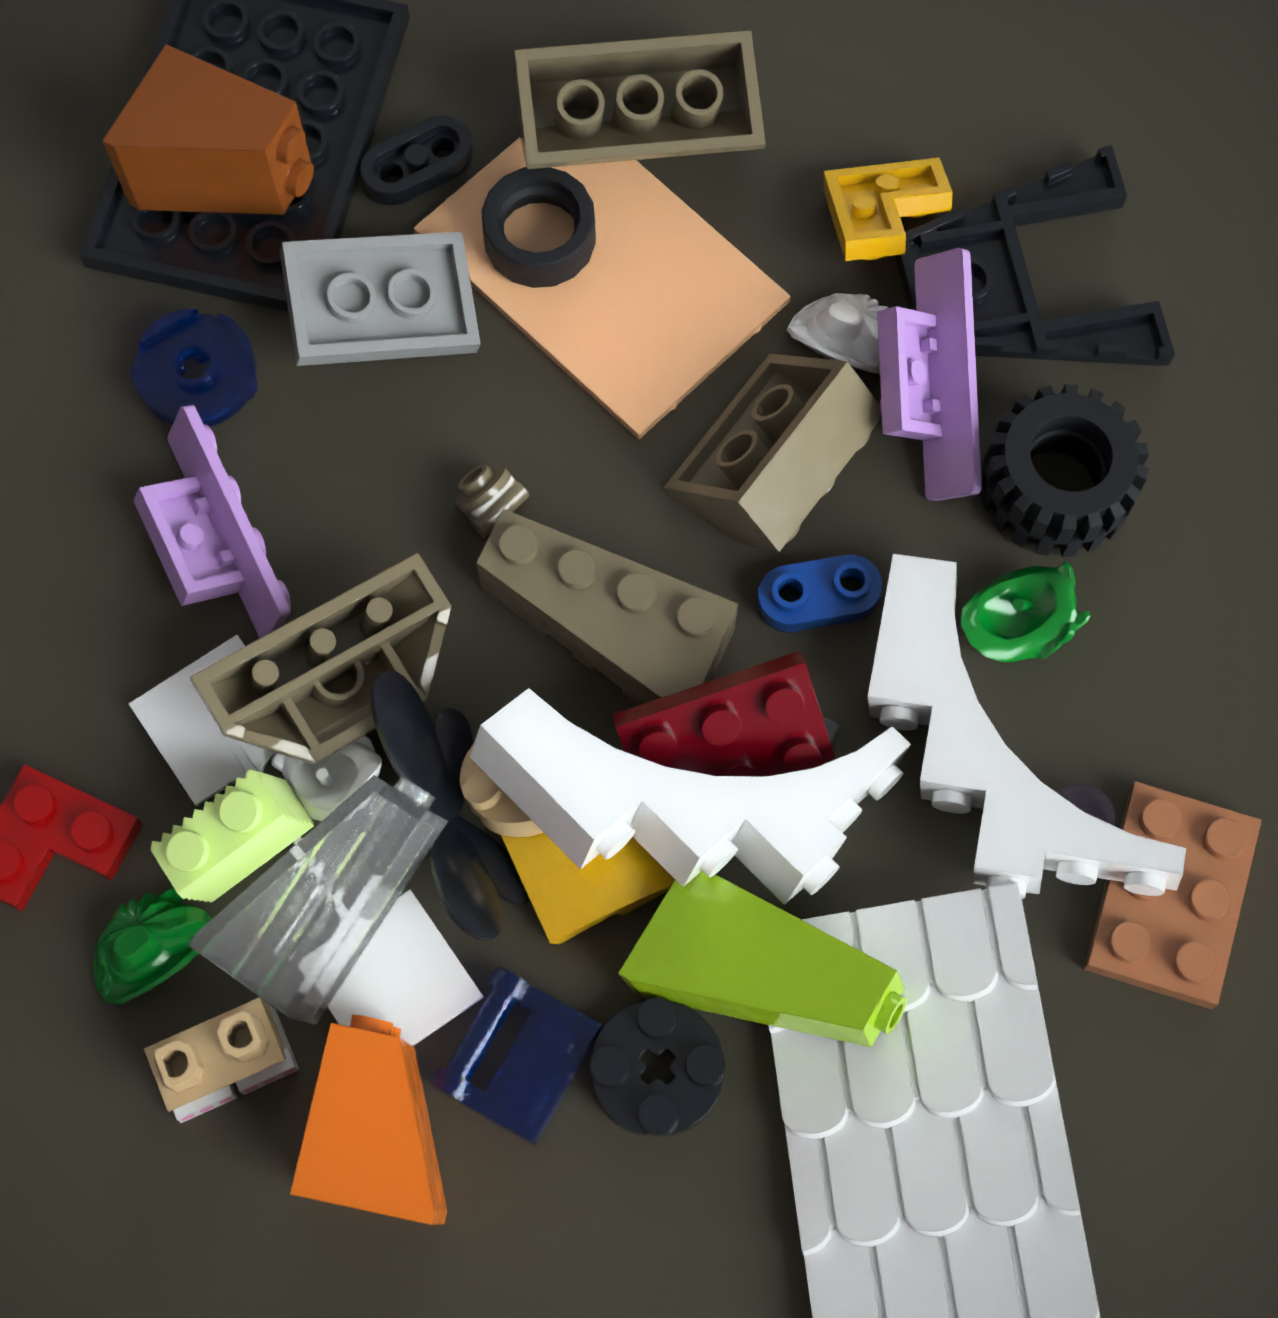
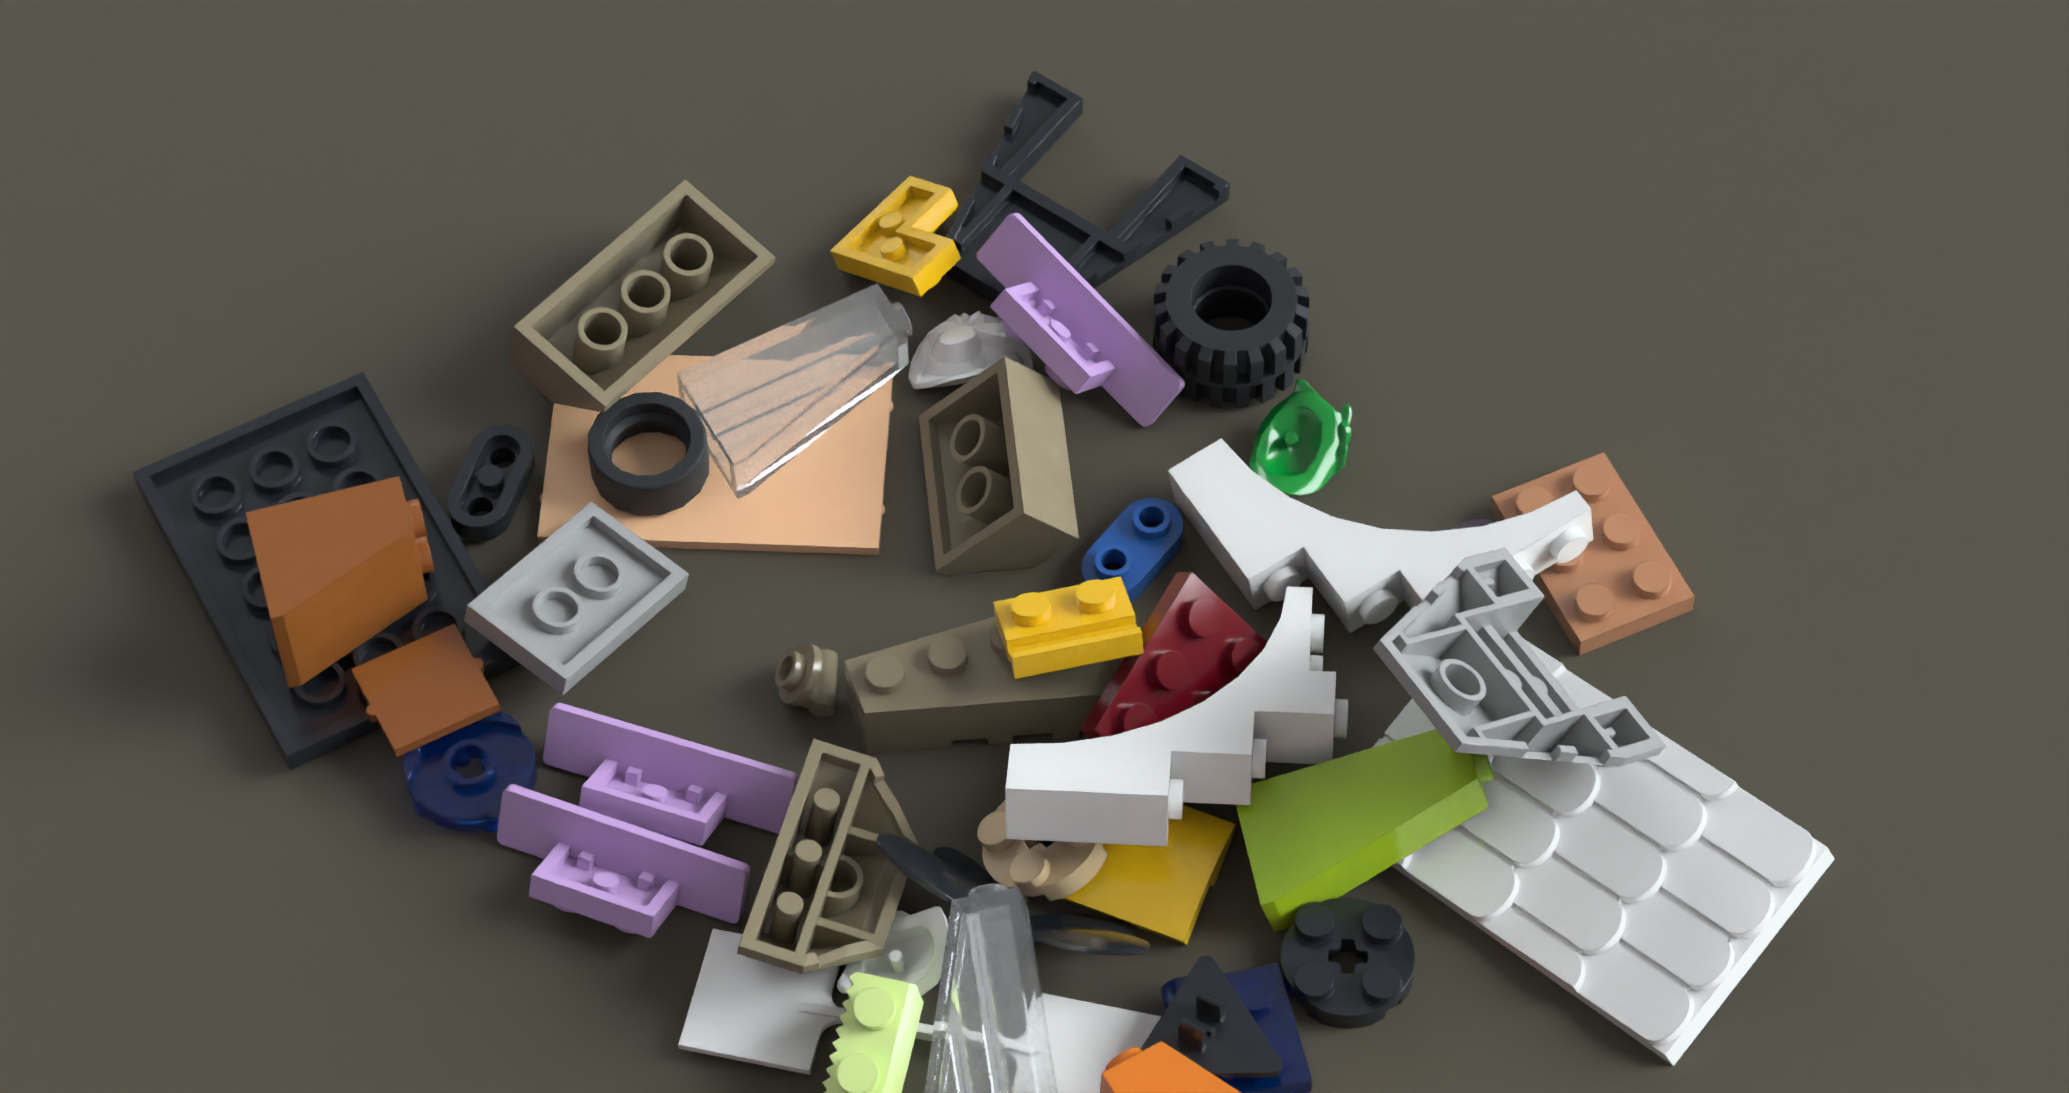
camera: 40 degrees left, 15 degrees down
(212, 283) = (425, 690): none -> dark orange piece
(302, 489) = (664, 779): none -> lavender bracket
(486, 1038) = (1215, 1027): none -> black piece
(672, 626) = (1068, 627): none -> yellow plate
(691, 255) = (794, 383): none -> clear slope
(925, 978) = (1486, 684): none -> light grey wedge

